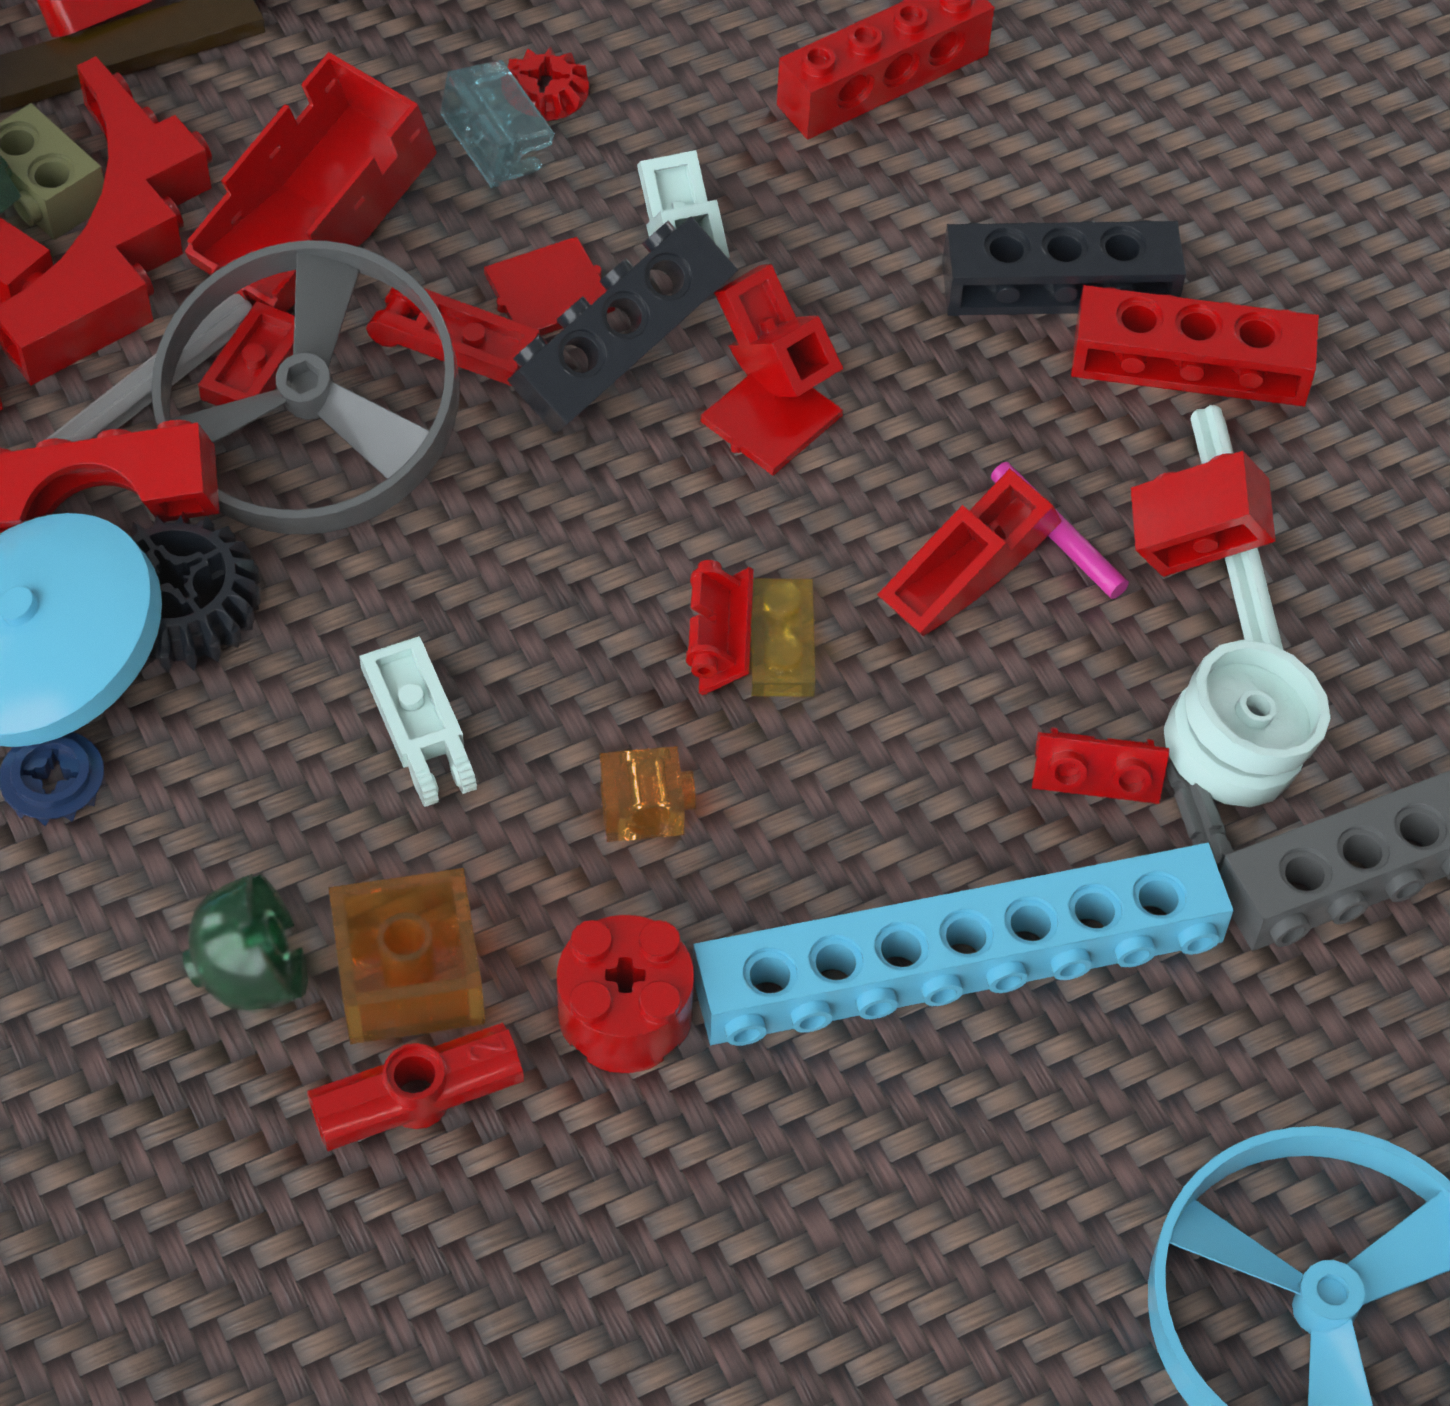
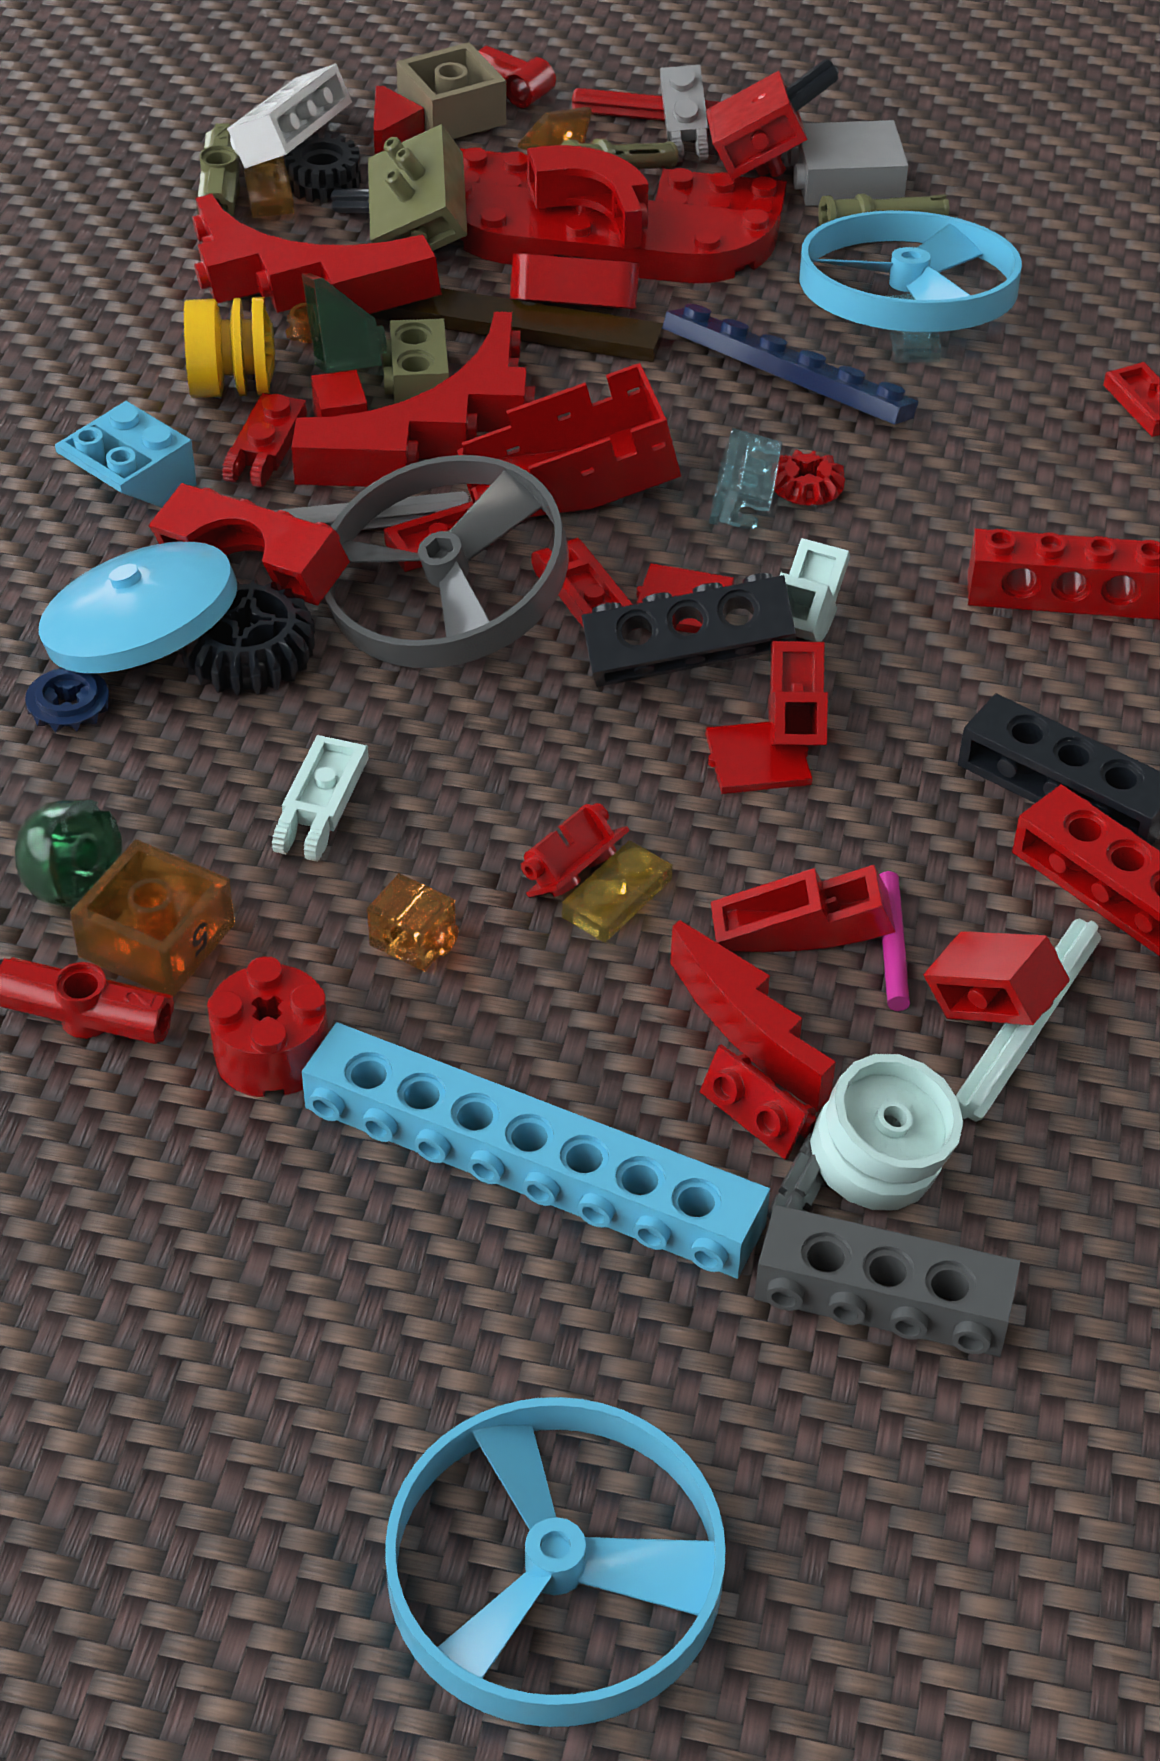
camera: 40 degrees right, 10 degrees down
(995, 681) = (739, 1005): none -> red slope

